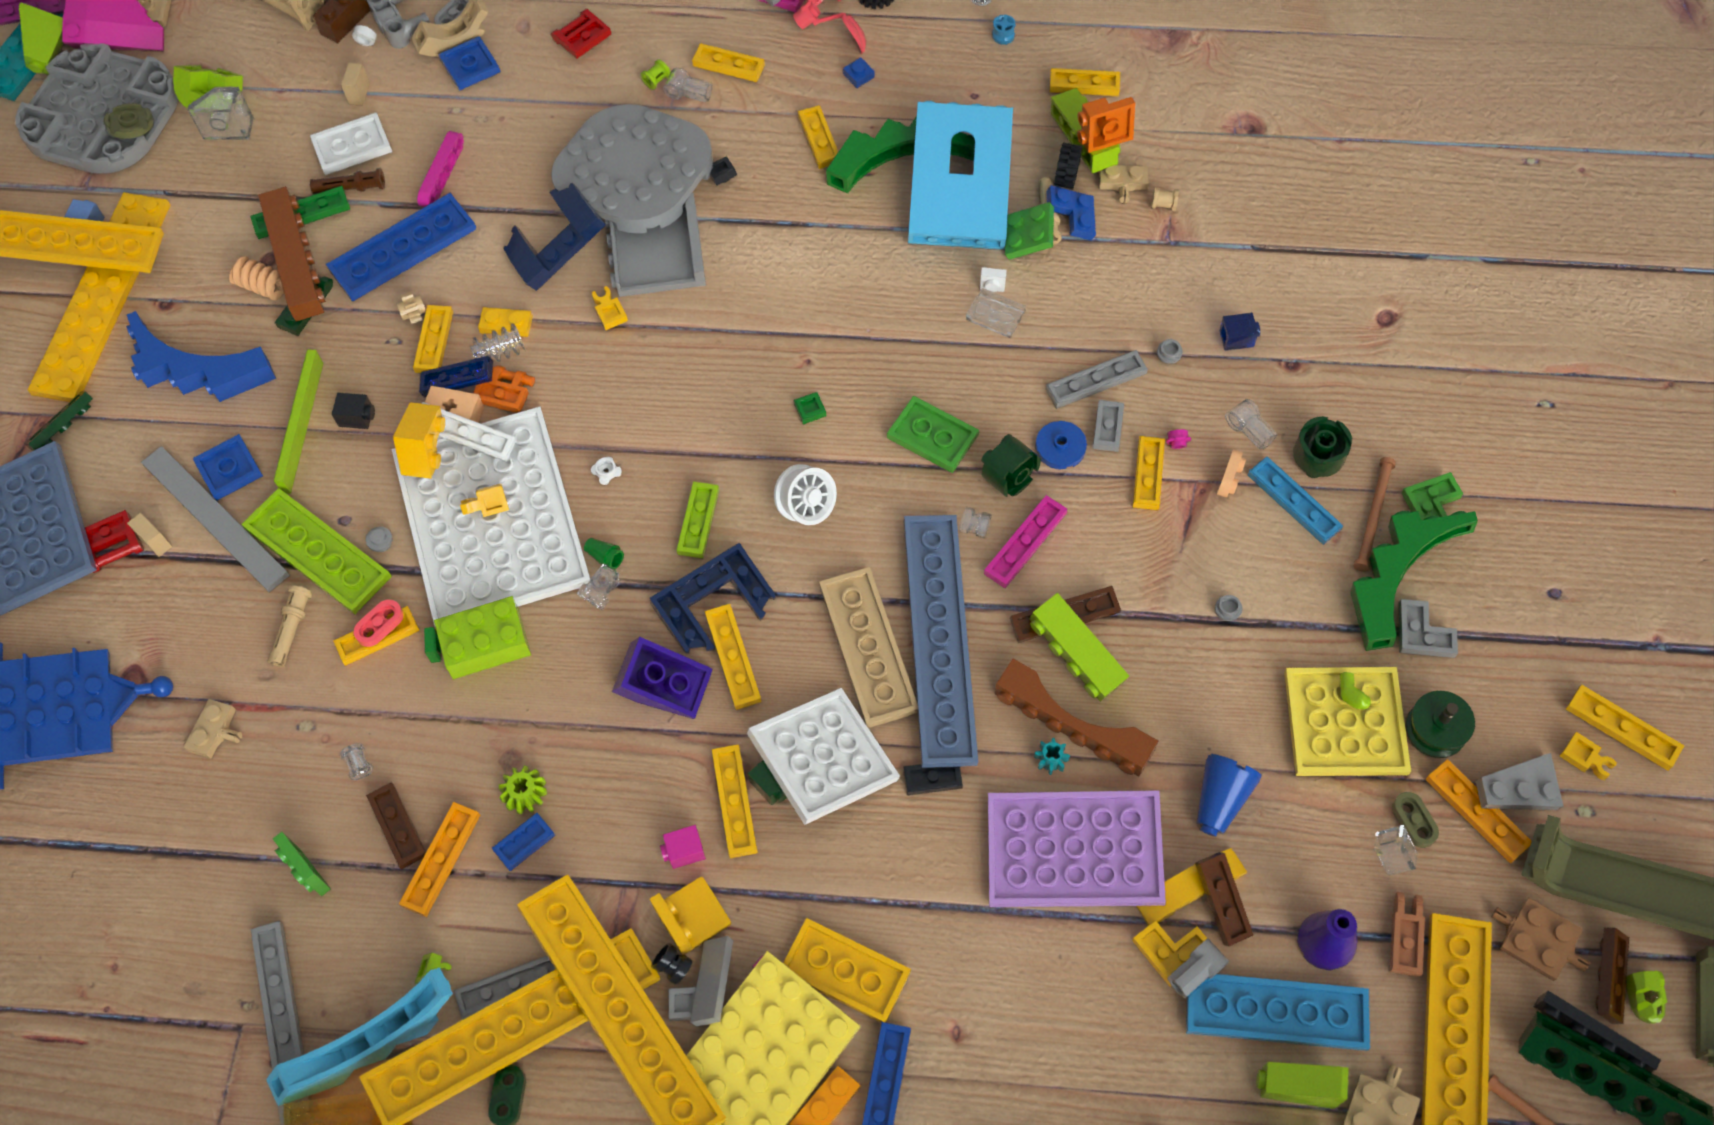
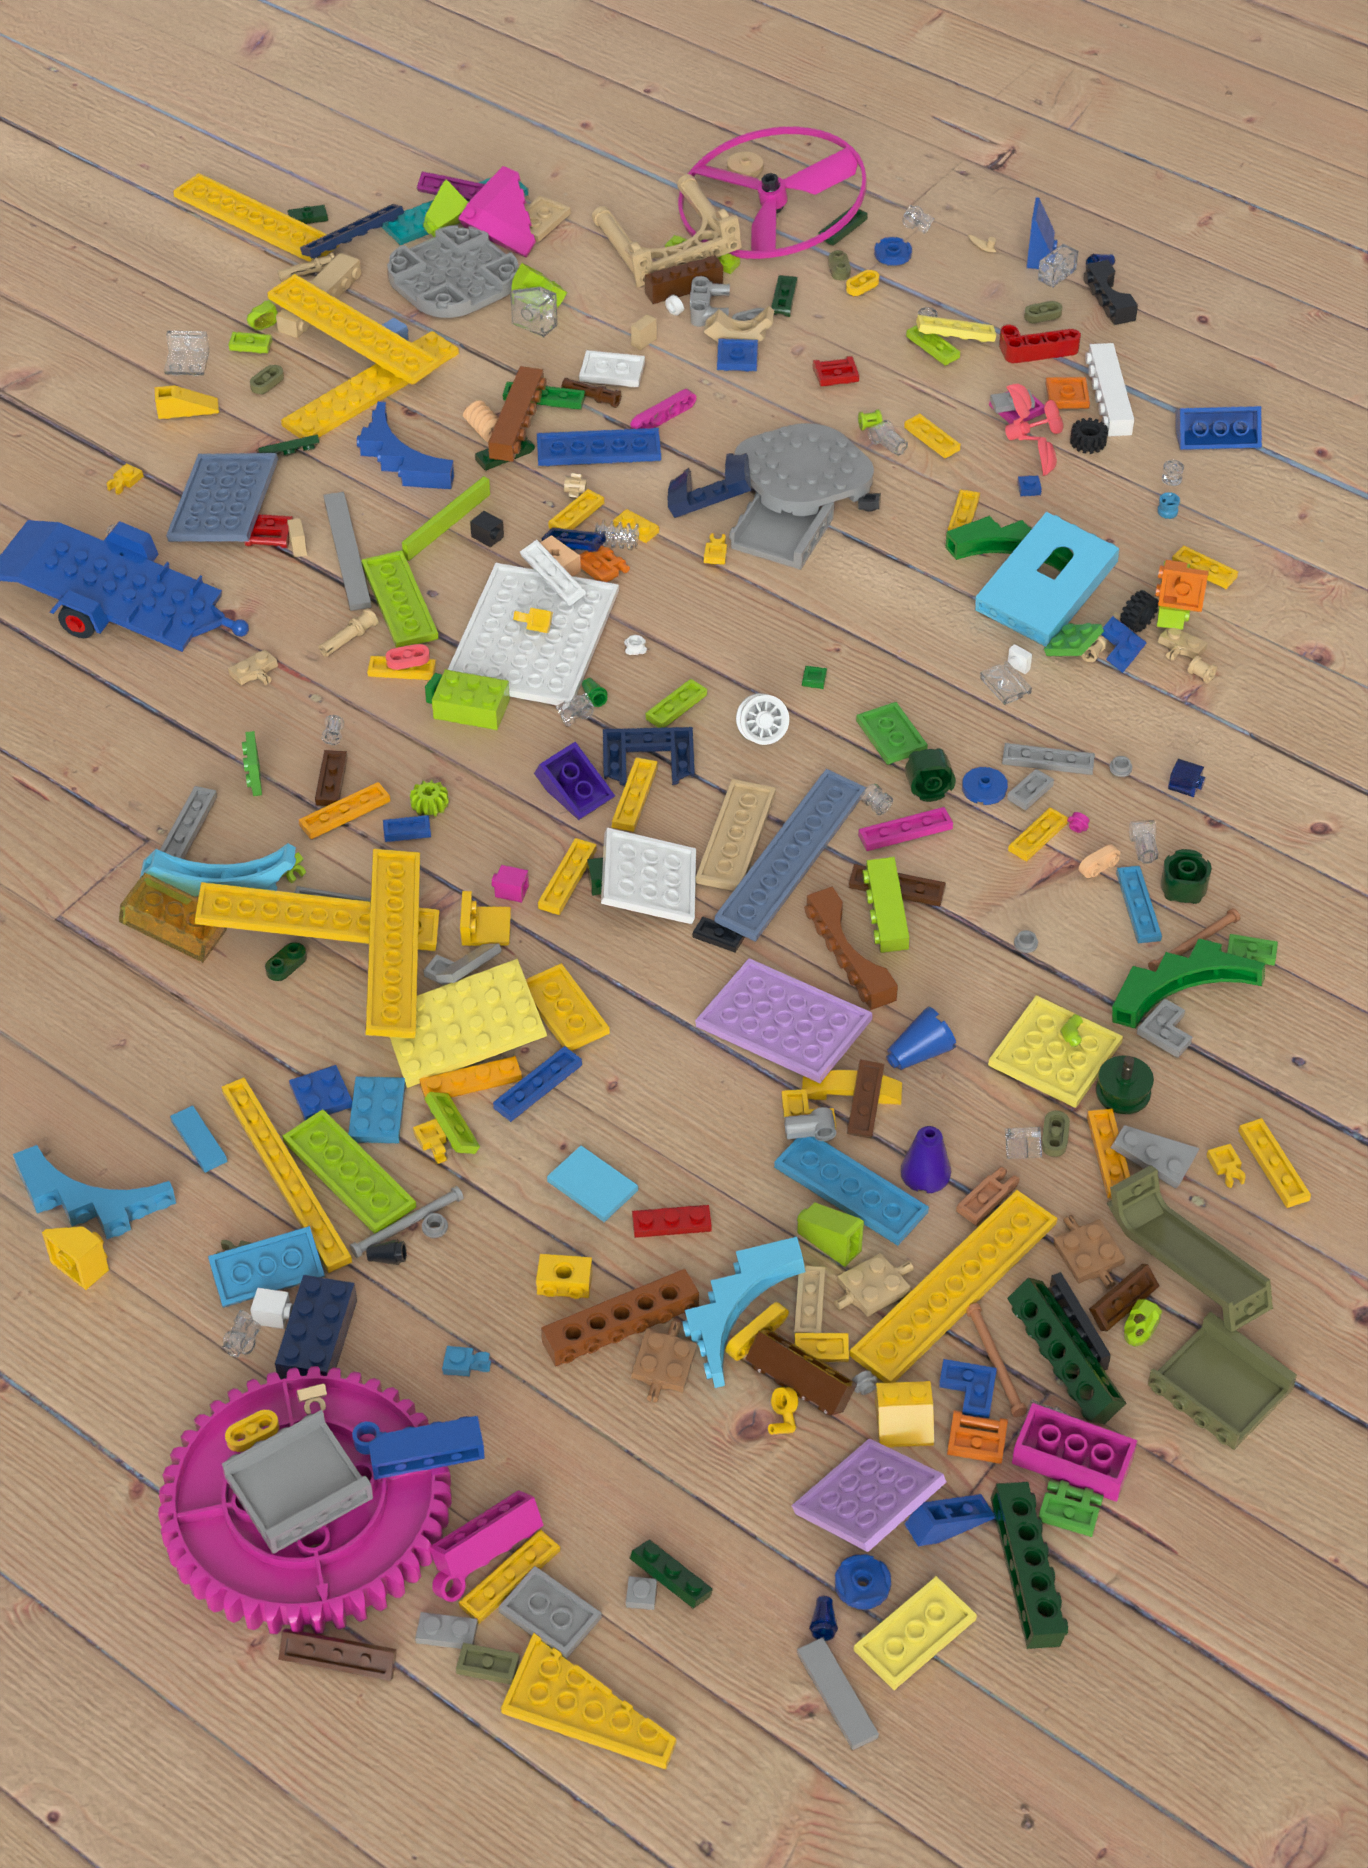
camera: 30 degrees right, 15 degrees down
(128, 121) = (467, 286): olive tile -> none
(227, 467) = (378, 524): blue plate -> none
(379, 539) = (446, 613): light grey plate -> none
(417, 440) = (513, 556): yellow brick -> none
(671, 963) = (449, 941): black wheel -> none
(1051, 748) = (813, 961): teal gear -> none

